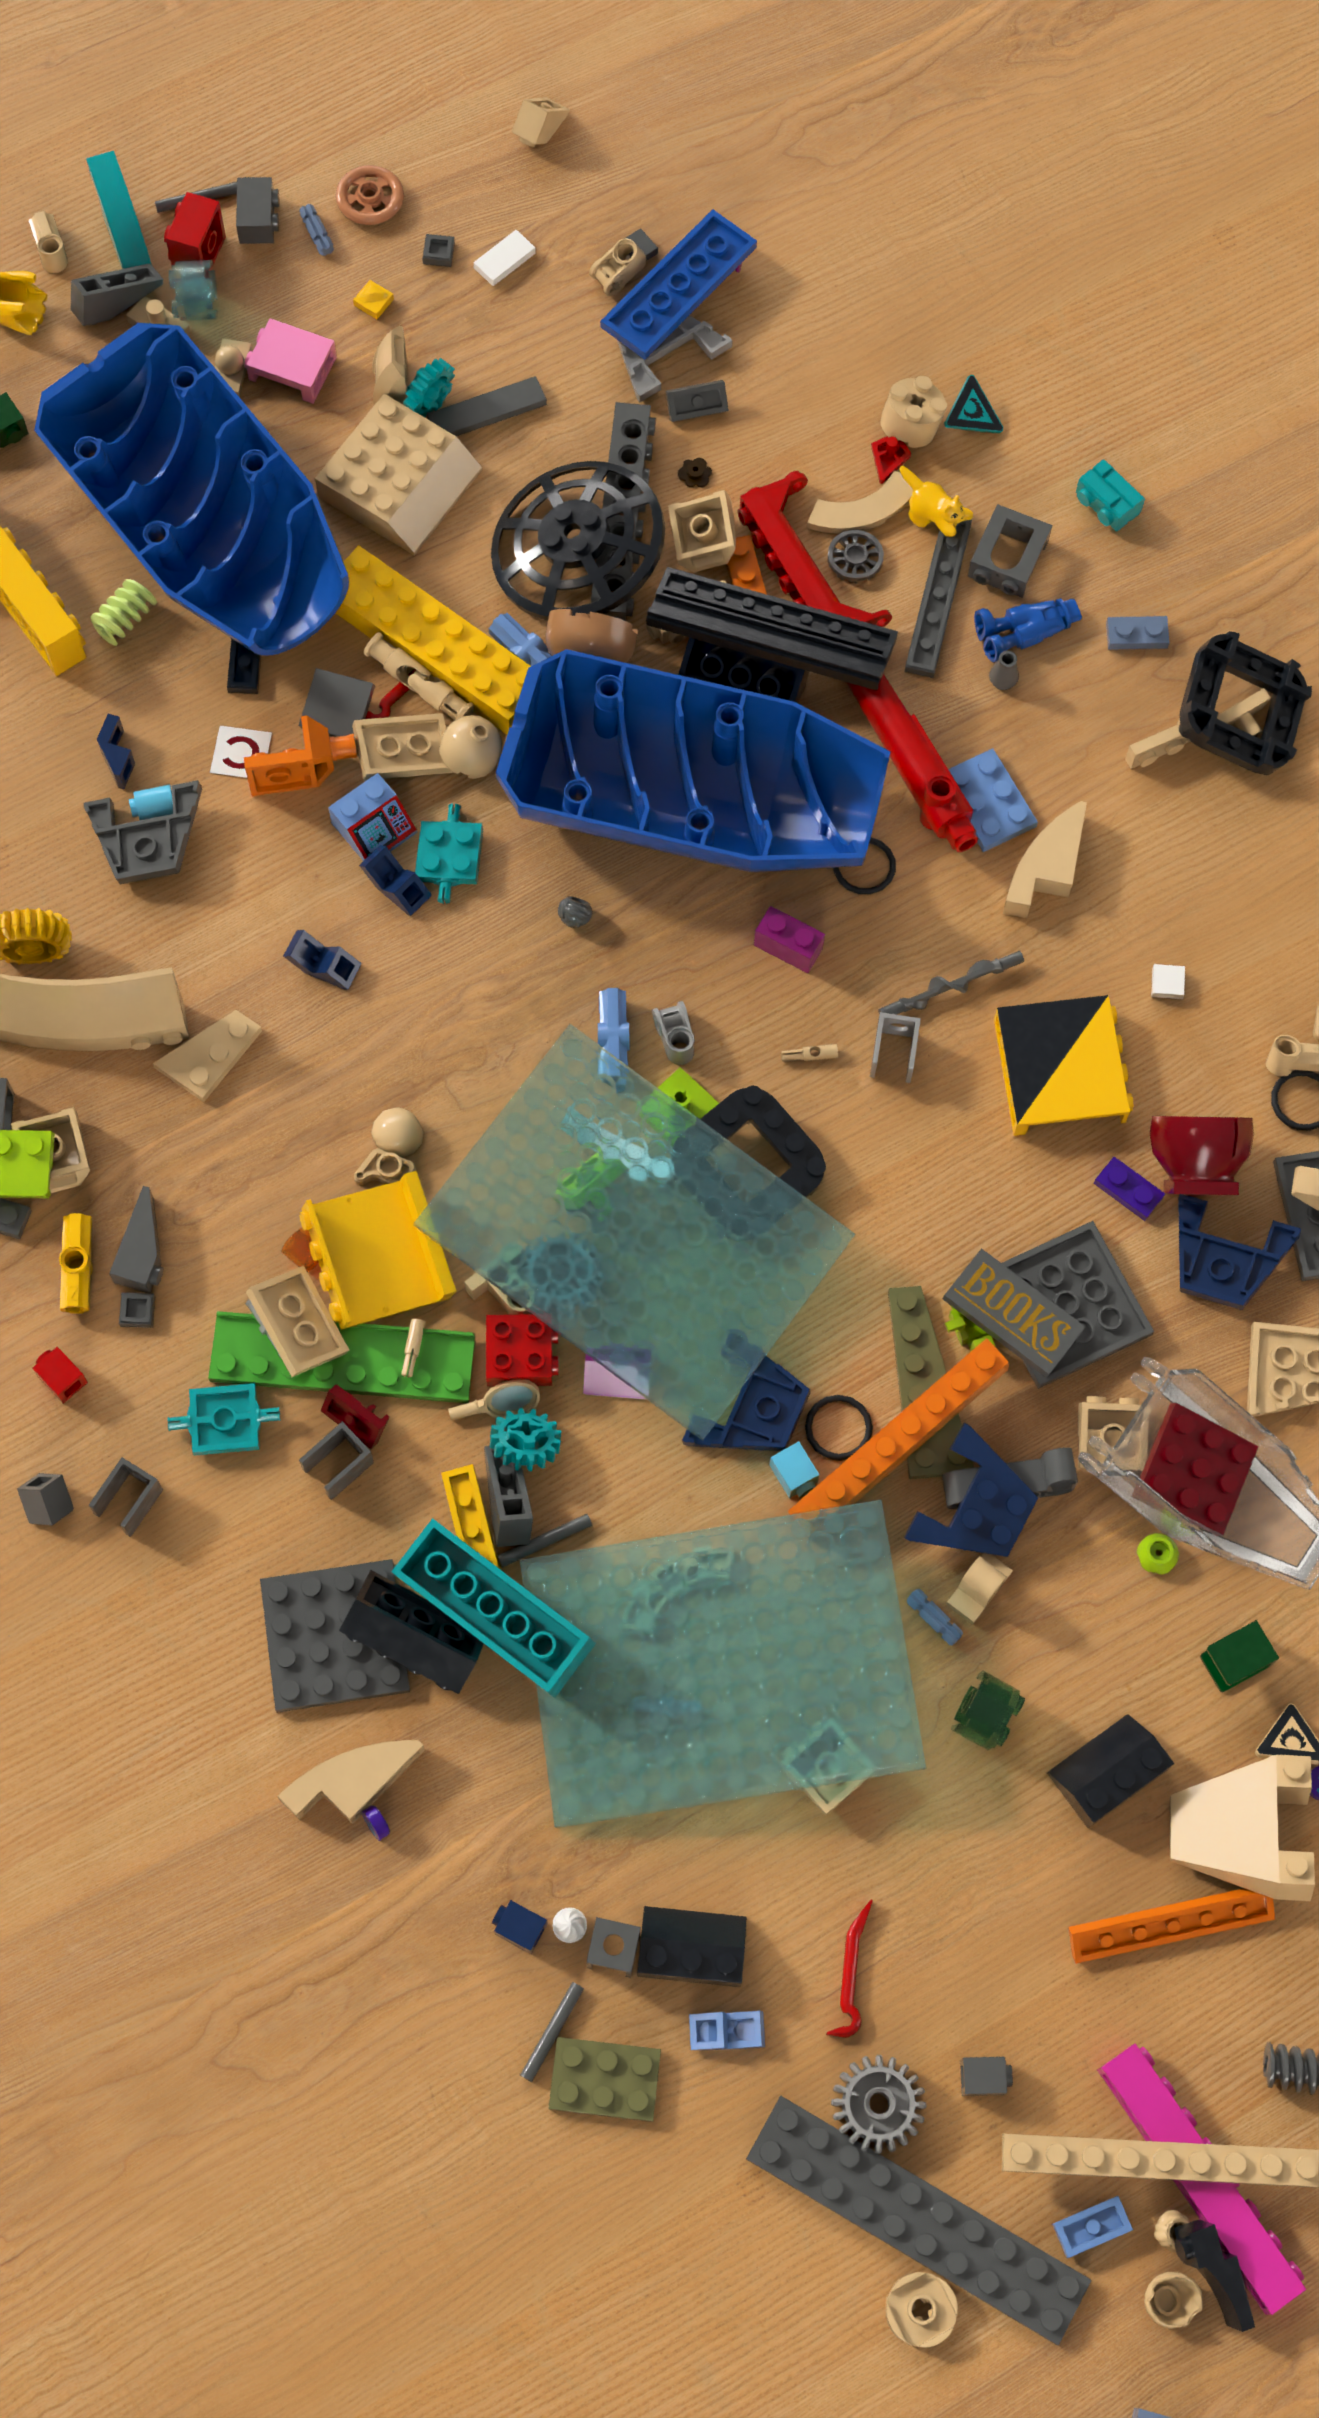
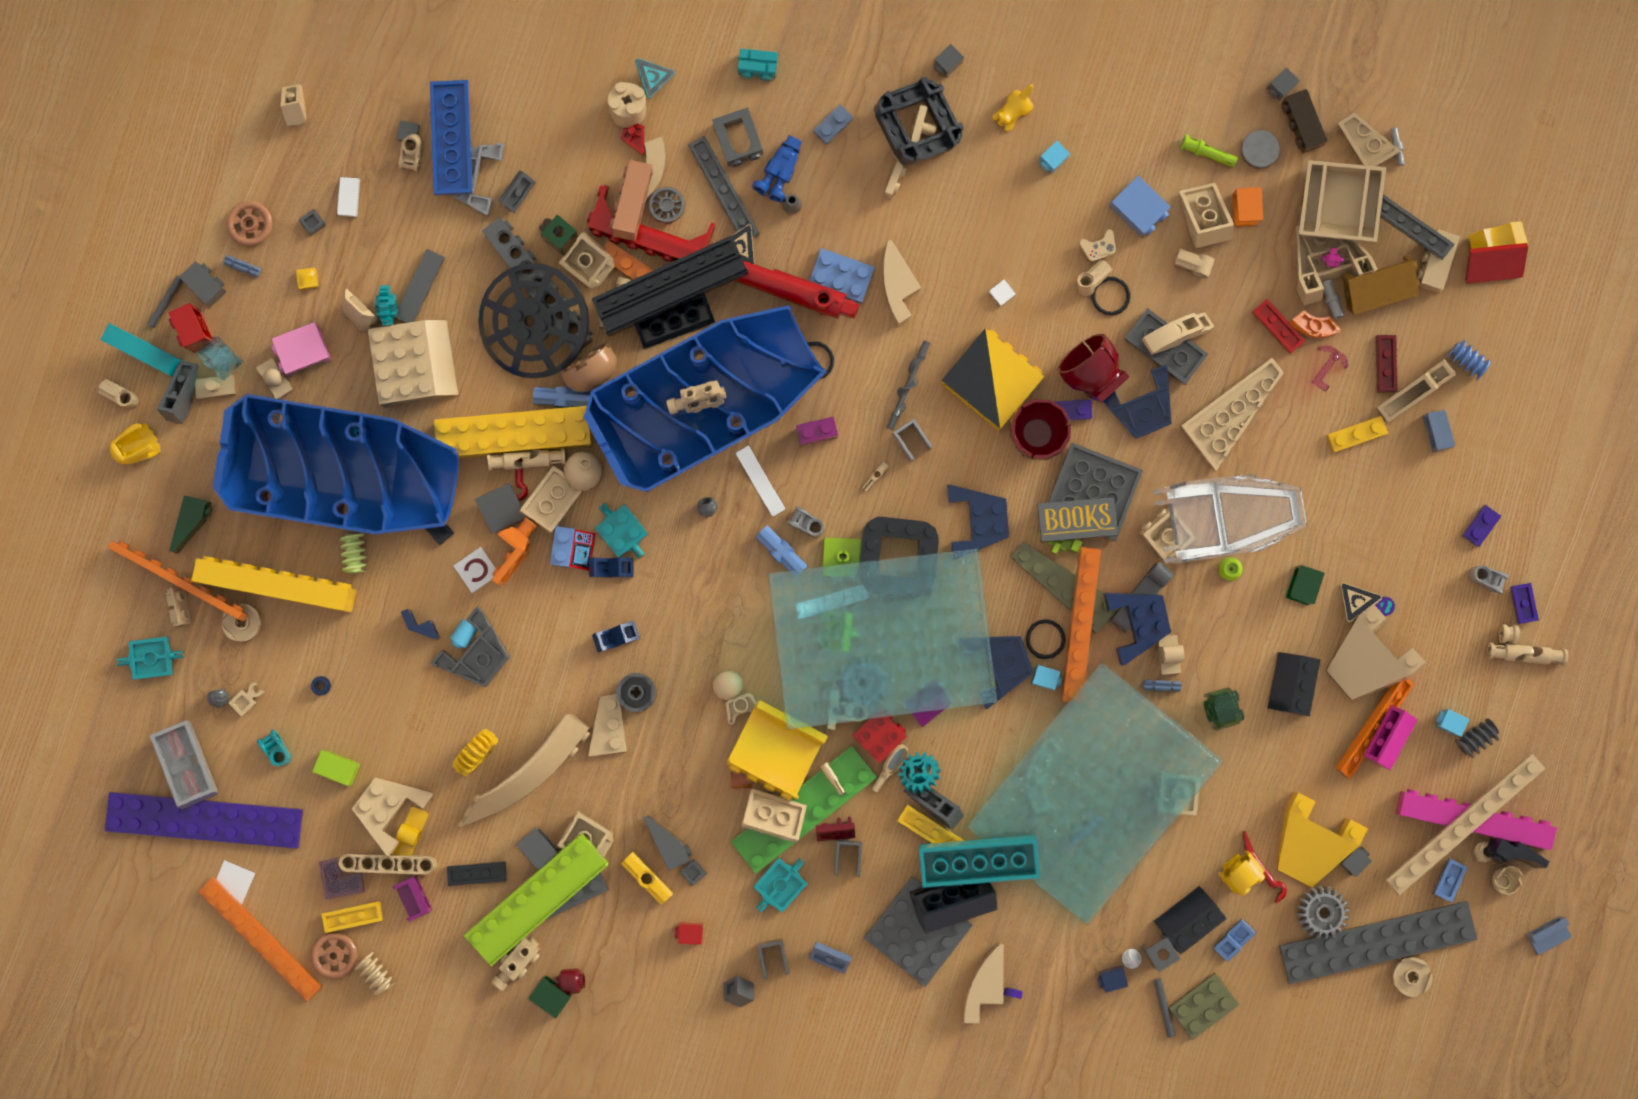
camera: 45 degrees left, 15 degrees up
(195, 1562) = (830, 957): none -> sand blue plate
(297, 1042) = (628, 700): none -> dark grey brick
(545, 1540) = (967, 806): dark grey bar -> none
(667, 937) = (760, 481): none -> white sticker
(682, 768) = (699, 395): none -> tan brick
(688, 478) = (558, 242): none -> dark green piece
(817, 1944) = (1242, 873): none -> yellow brick
(818, 508) = (632, 200): none -> nougat brick
(903, 1218) = (987, 518): none -> dark blue wing
(905, 665) = (744, 243): none -> black piece
(932, 504) = (680, 145): yellow animal -> none
(938, 2004) = (1309, 849): none -> yellow wedge
(1065, 1162) = (1040, 429): none -> dark red plate
(1179, 1955) = (1390, 737): none -> dark pink brick
(1198, 1467) = (1217, 519): dark red plate -> none
(1281, 2014) = (1451, 722): none -> medium azure brick

